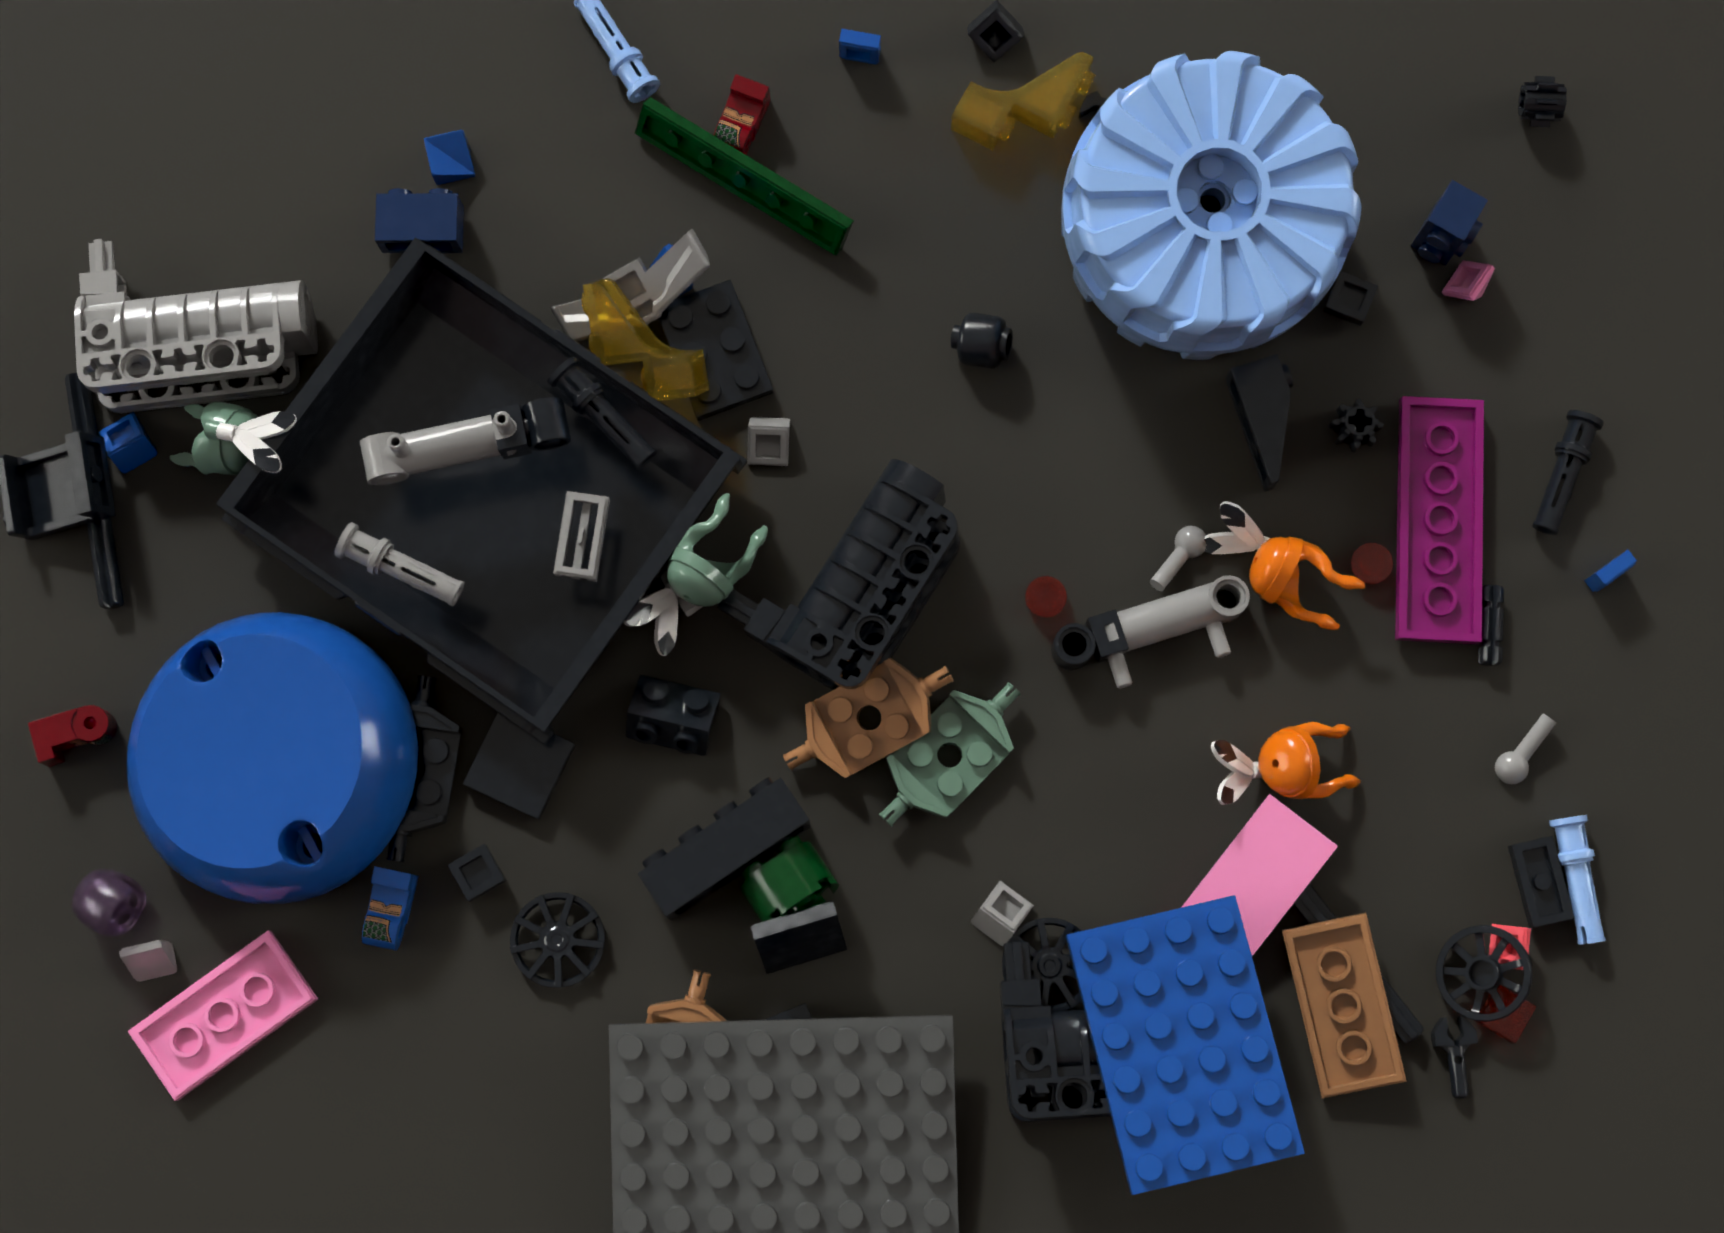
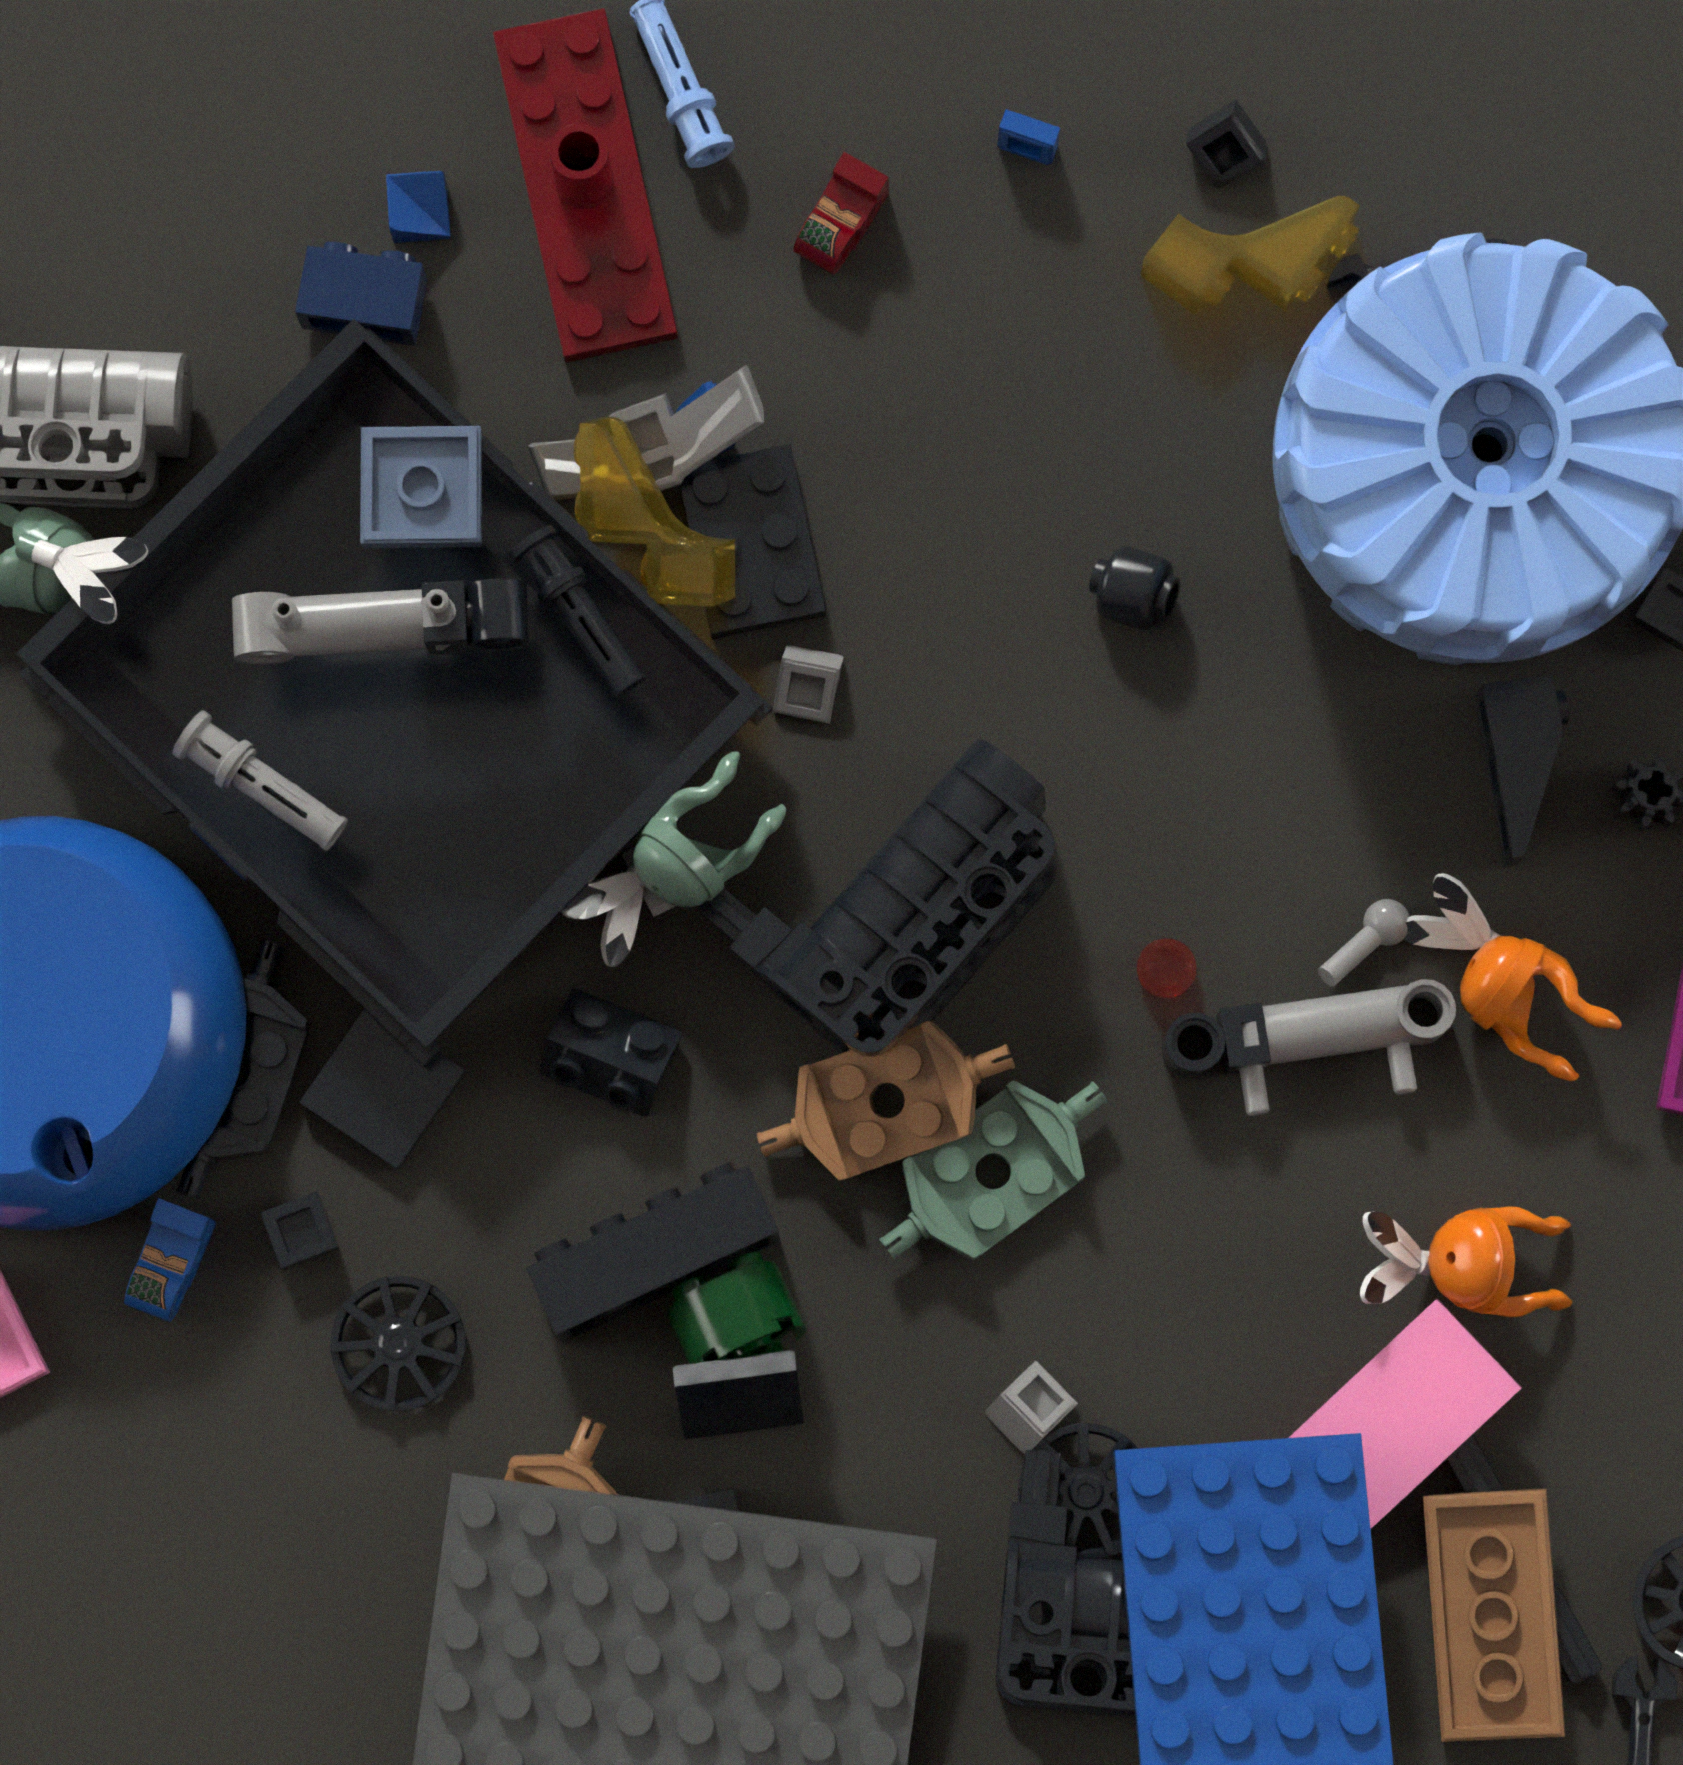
camera: 10 degrees right, 0 degrees up
(479, 345) = (421, 487): none -> sand blue tile
(562, 126) = (592, 221): none -> dark red plate
(576, 570) = (506, 829): light grey tile -> none
(743, 176) = (832, 299): dark green tile -> none
(1371, 563) = (1639, 994): clear red plate -> none

